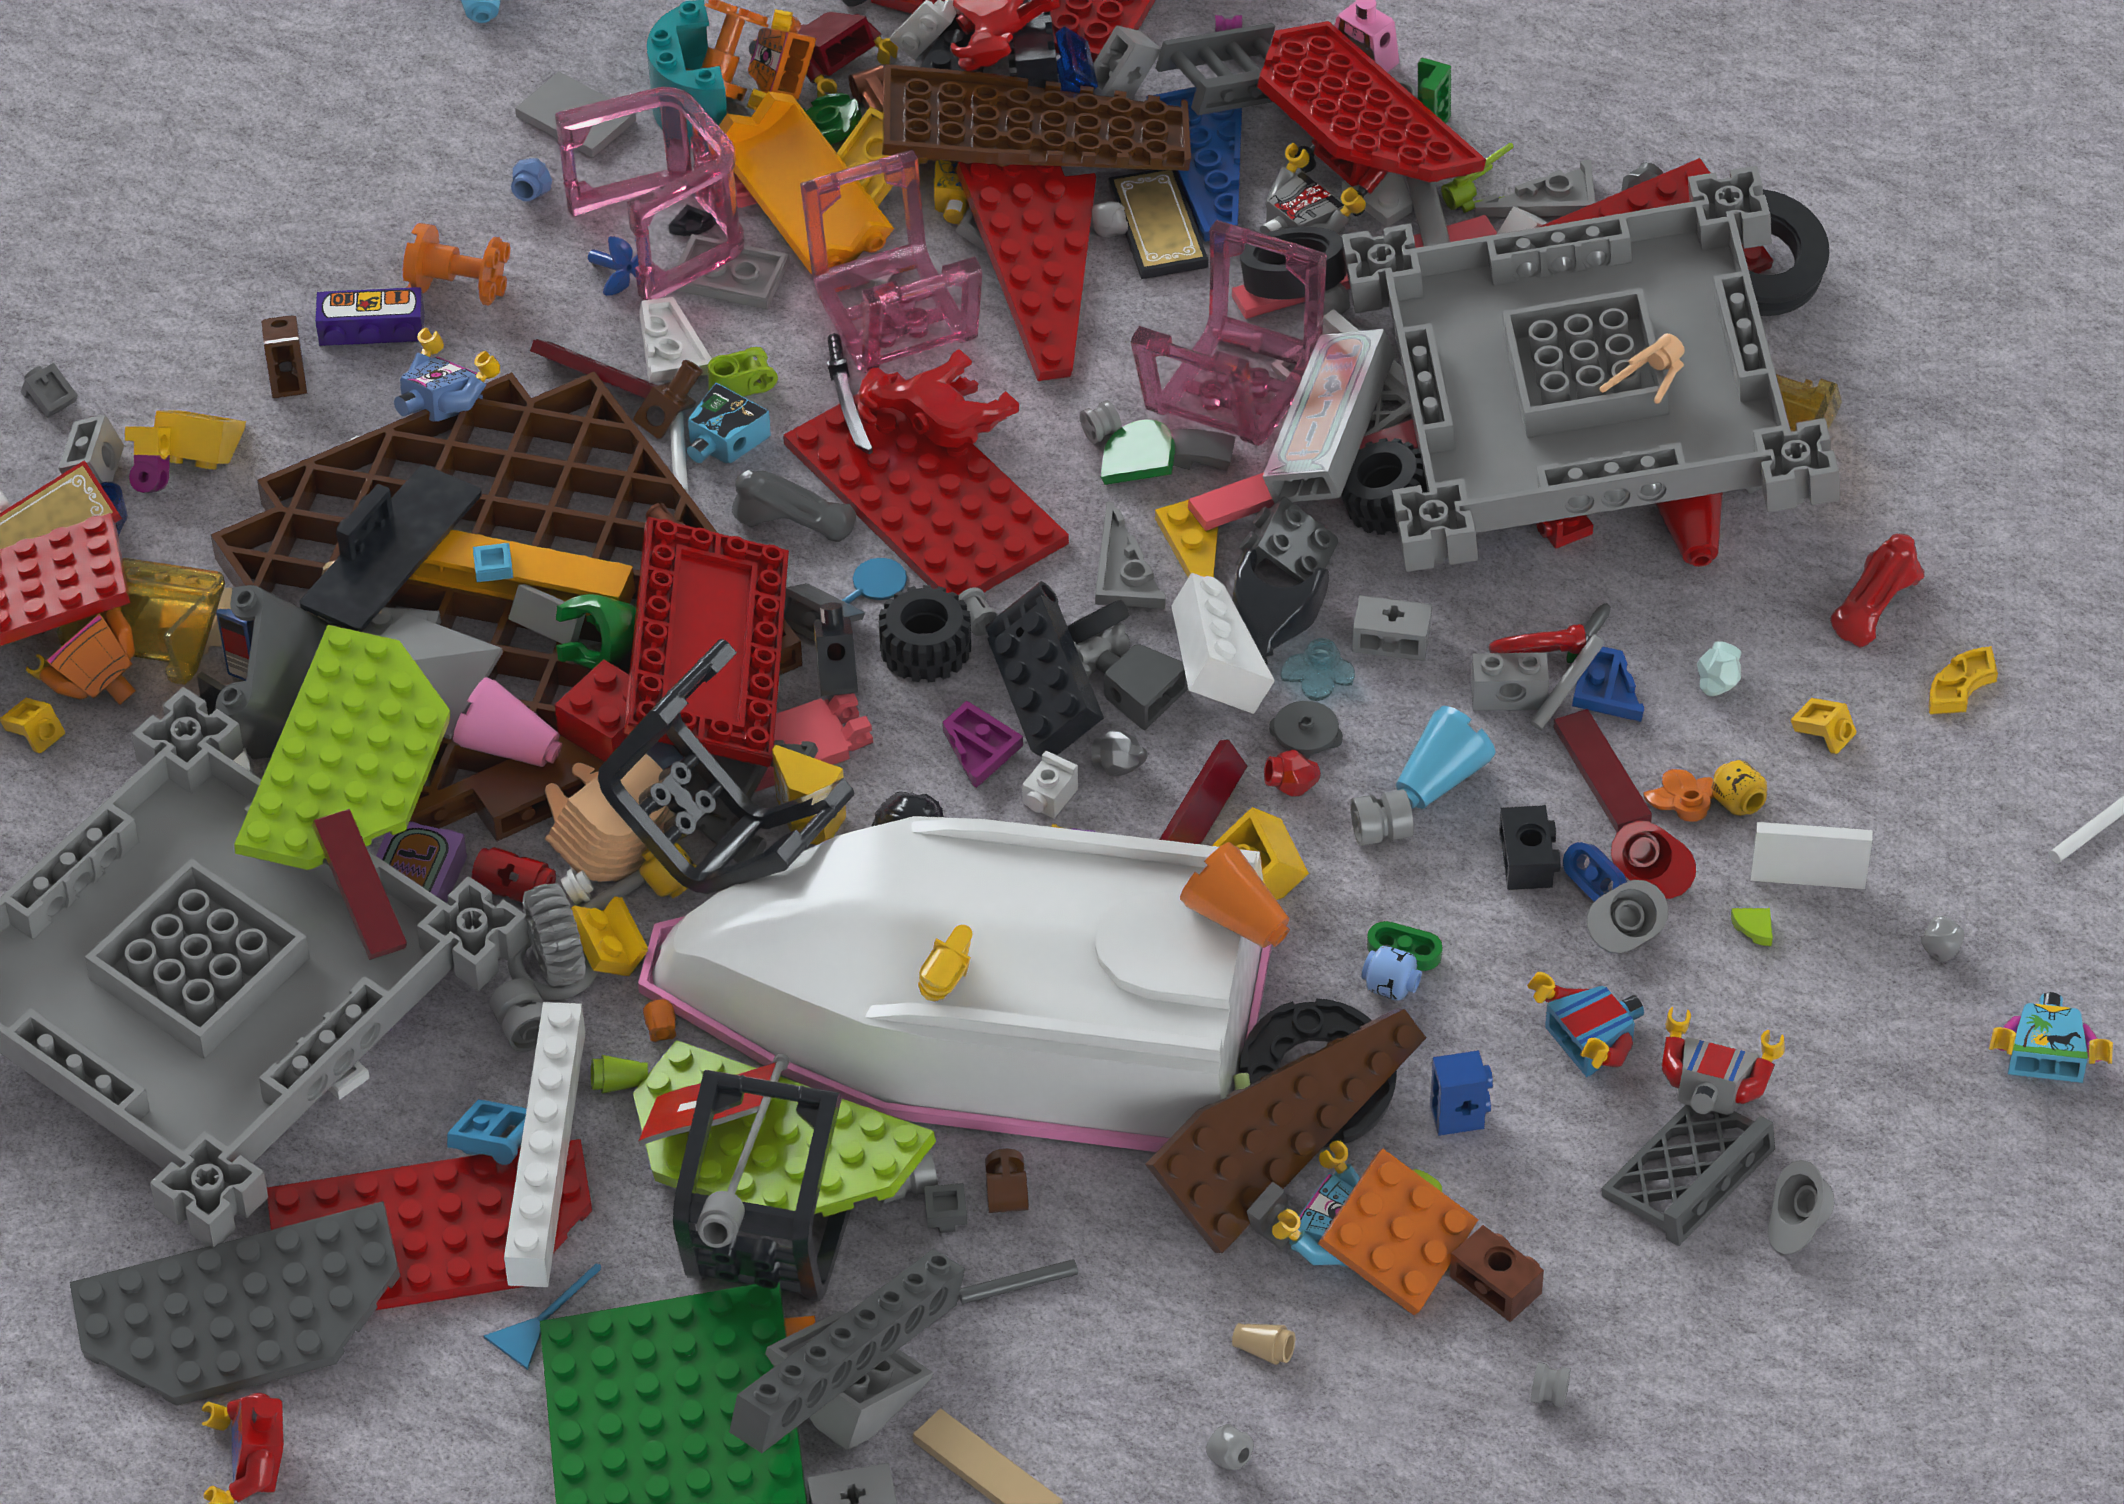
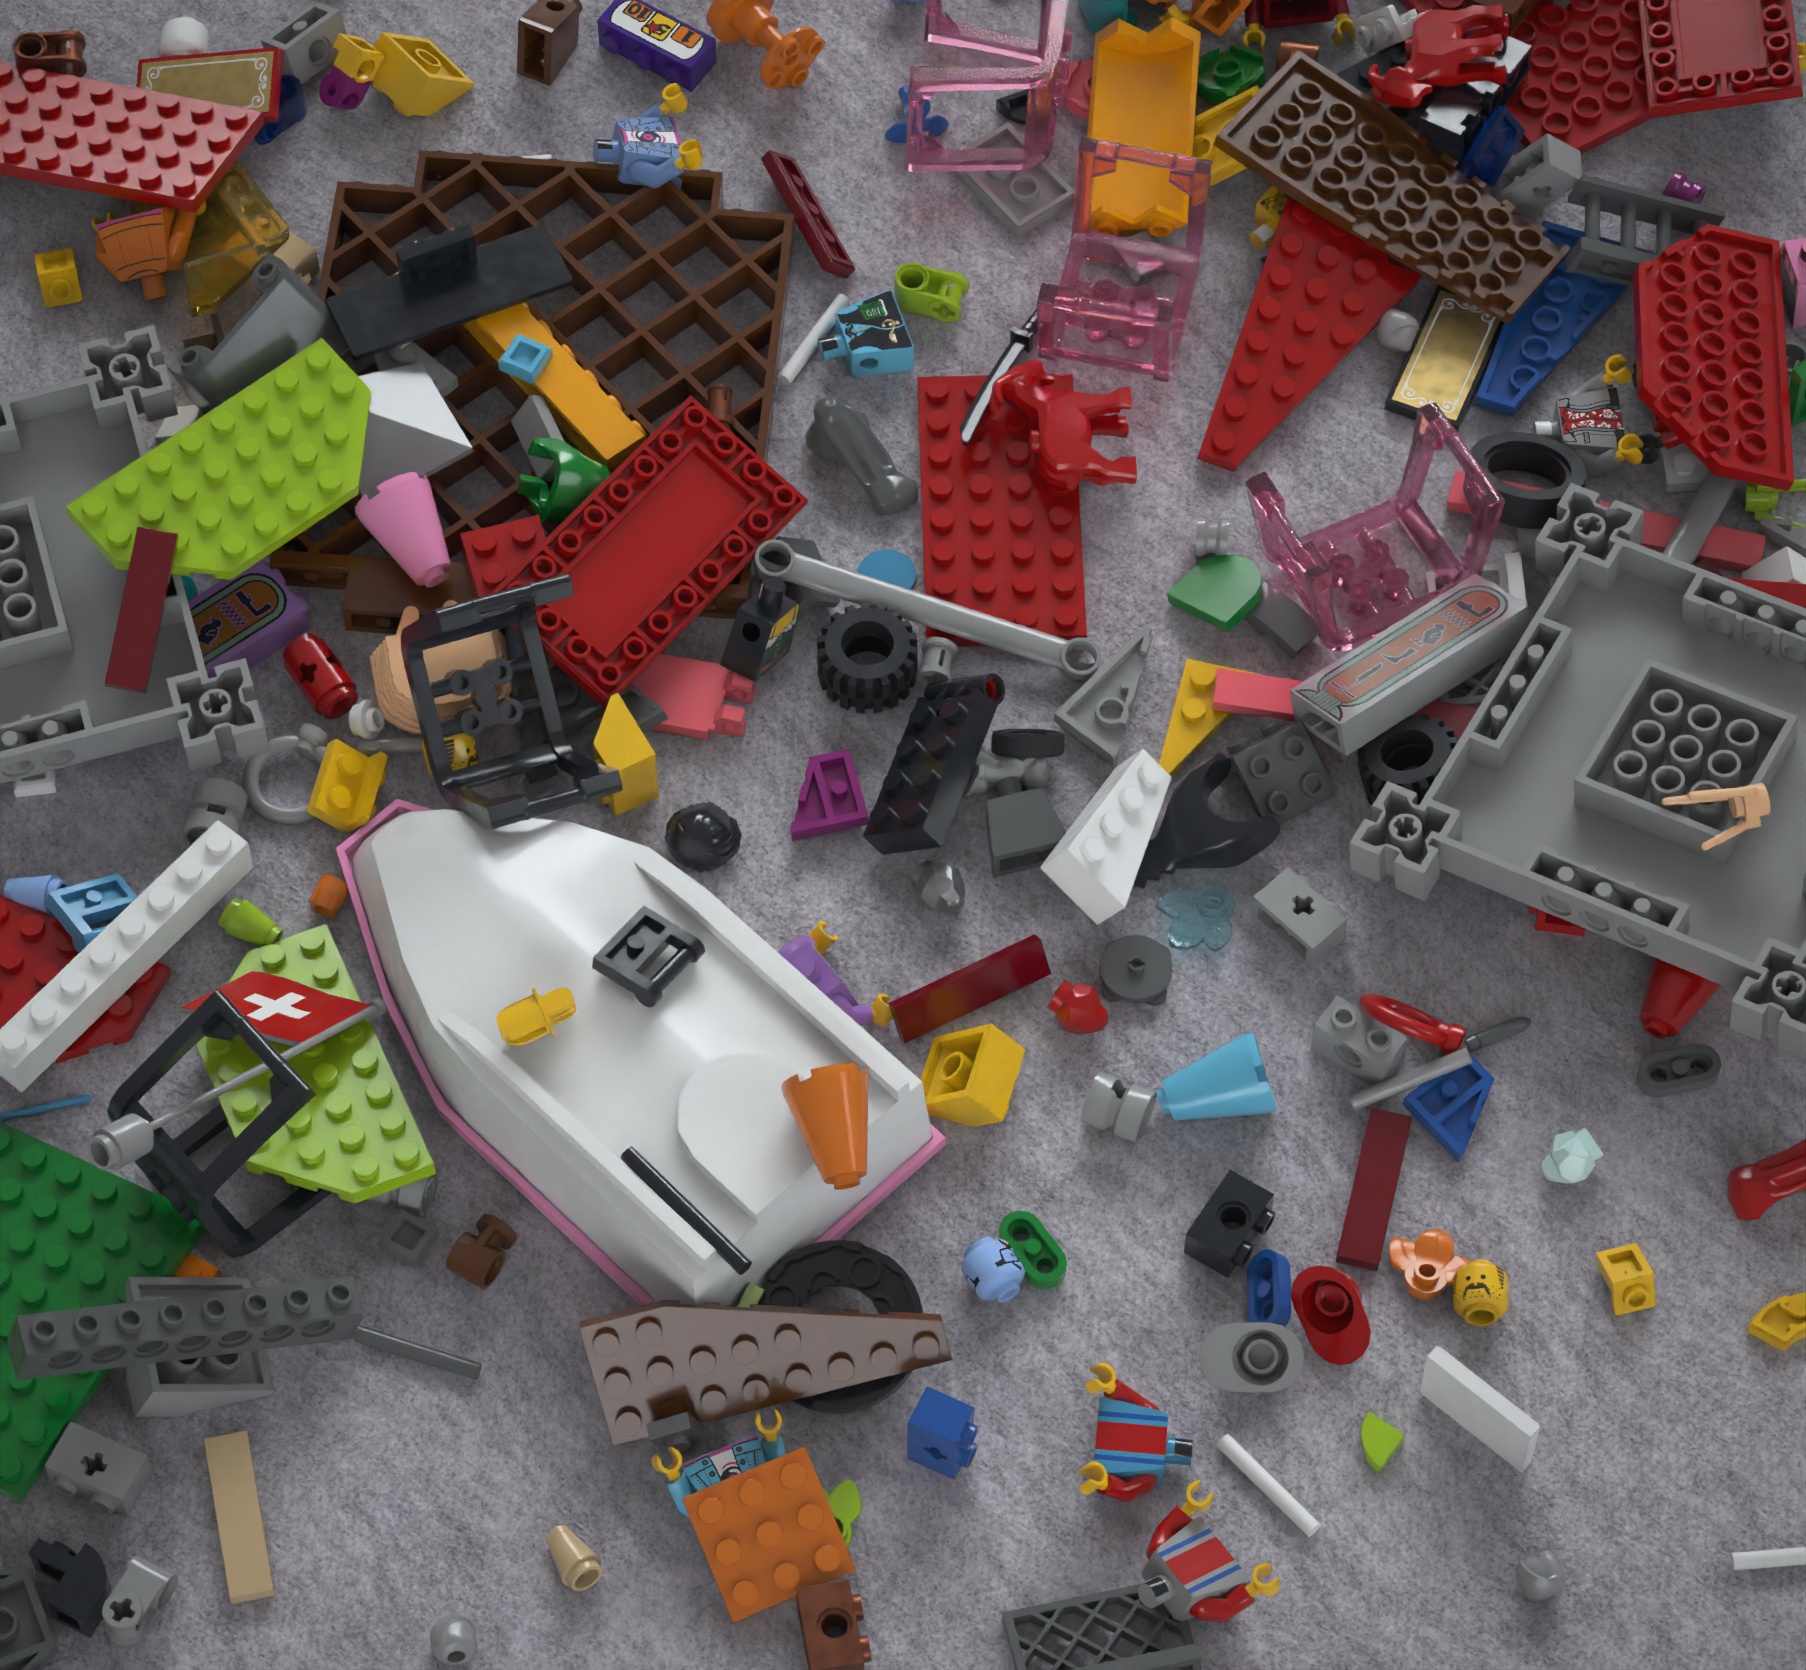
camera: 35 degrees right, 10 degrees up
(426, 1148) = (33, 890): none -> light blue cone
(554, 935) = (288, 758): light grey gear -> none
(669, 339) = (894, 223): white wing -> none
(671, 398) = (843, 281): reddish brown bracket -> none
(943, 575) = (928, 610): none -> light grey piece
(978, 877) = (638, 947): none -> black plate
(1050, 785) = (852, 882): white brick -> none
(1228, 1035) = (686, 1210): none -> black bar
(1705, 997) = (1268, 1485): none -> white bar
(1734, 581) = (1675, 1069): none -> dark grey plate

